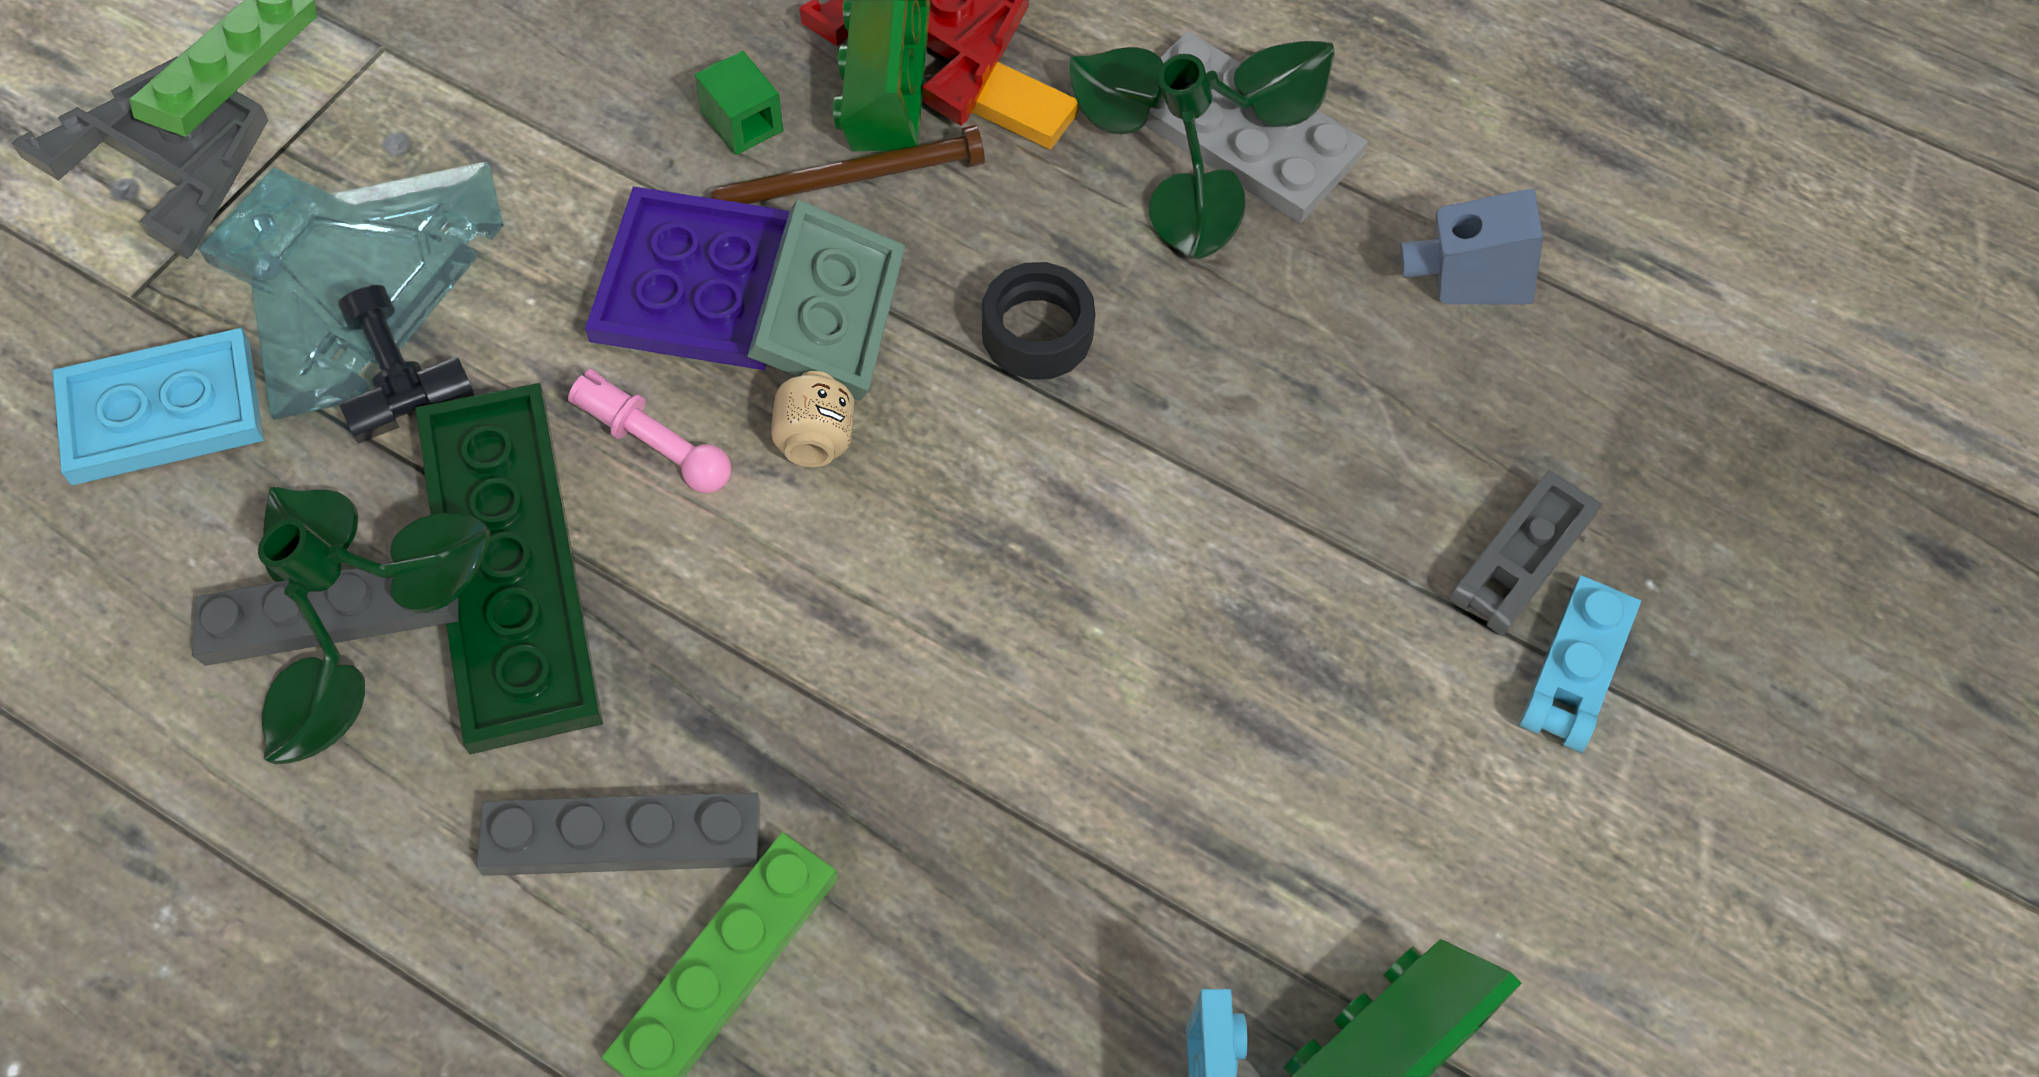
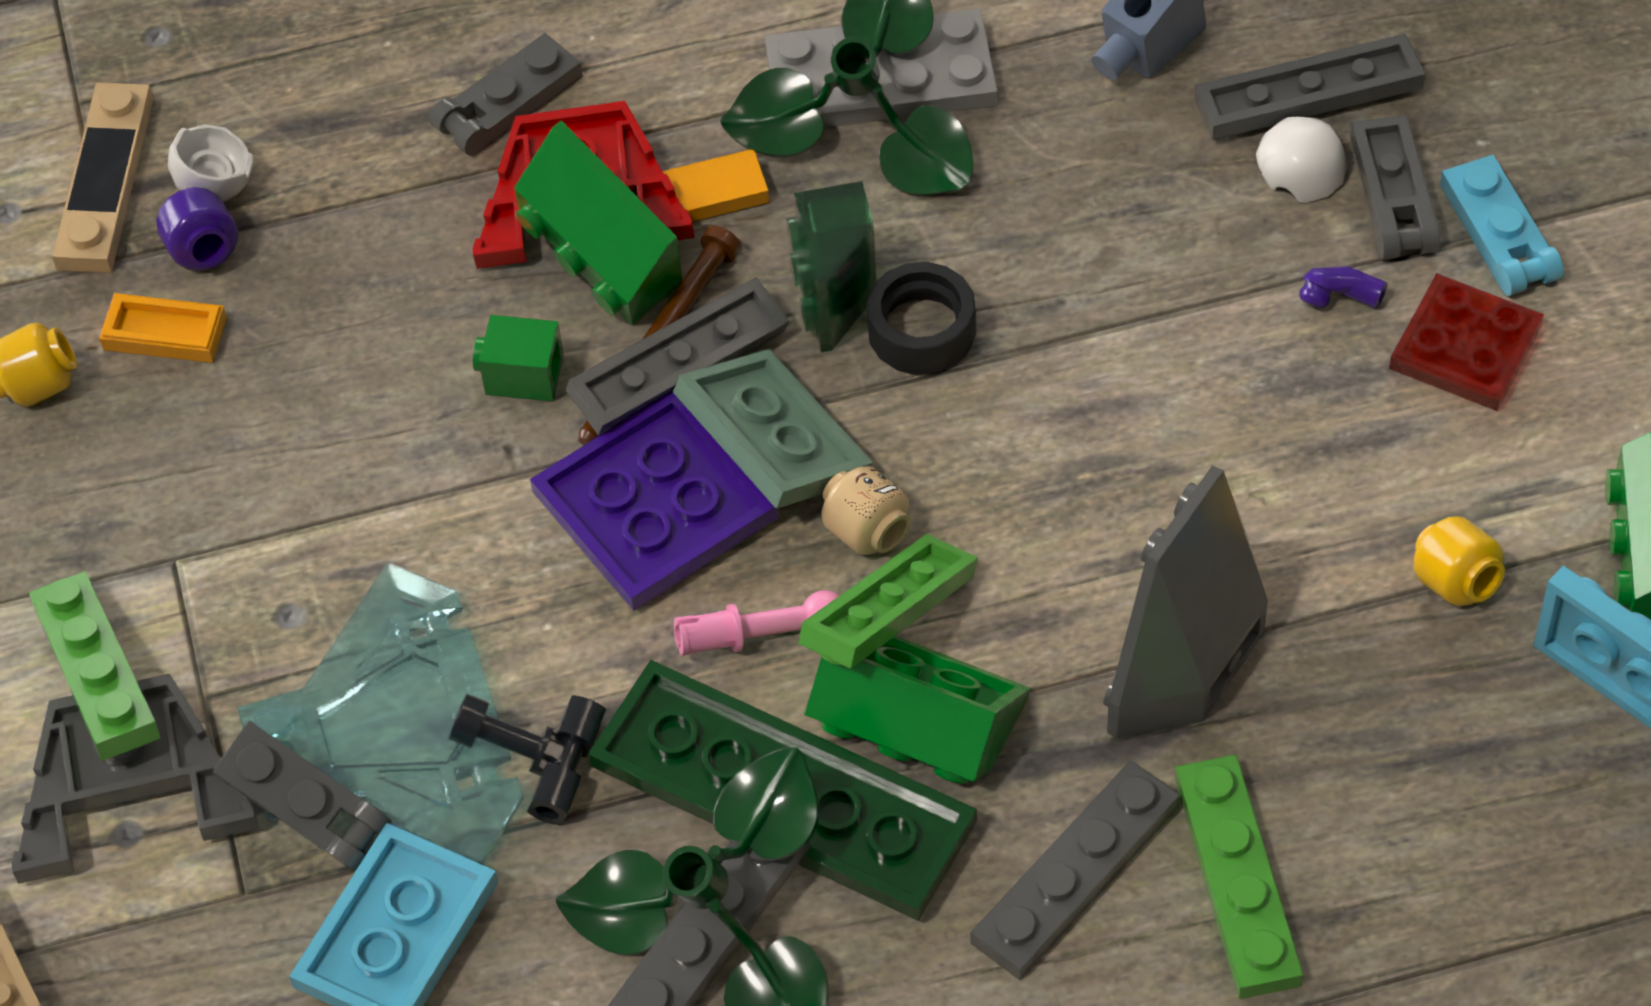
camera: 40 degrees left, 5 degrees down
(216, 255) = (299, 794): none -> dark grey plate
(670, 591) = (920, 707): none -> green slope
(717, 493) = (887, 601): none -> bright green plate
(858, 193) = (696, 341): none -> dark grey plate
(914, 714) = (1191, 617): none -> dark grey wedge
(1012, 215) = (833, 258): none -> clear green slope
(1196, 897) = (1459, 561): none -> yellow head
(1391, 584) = (1342, 280): none -> dark purple arm
(1436, 729) = (1466, 341): none -> clear red tile
(1479, 465) = (1302, 158): none -> white hair
(1554, 415) = (1309, 86): none -> dark grey plate

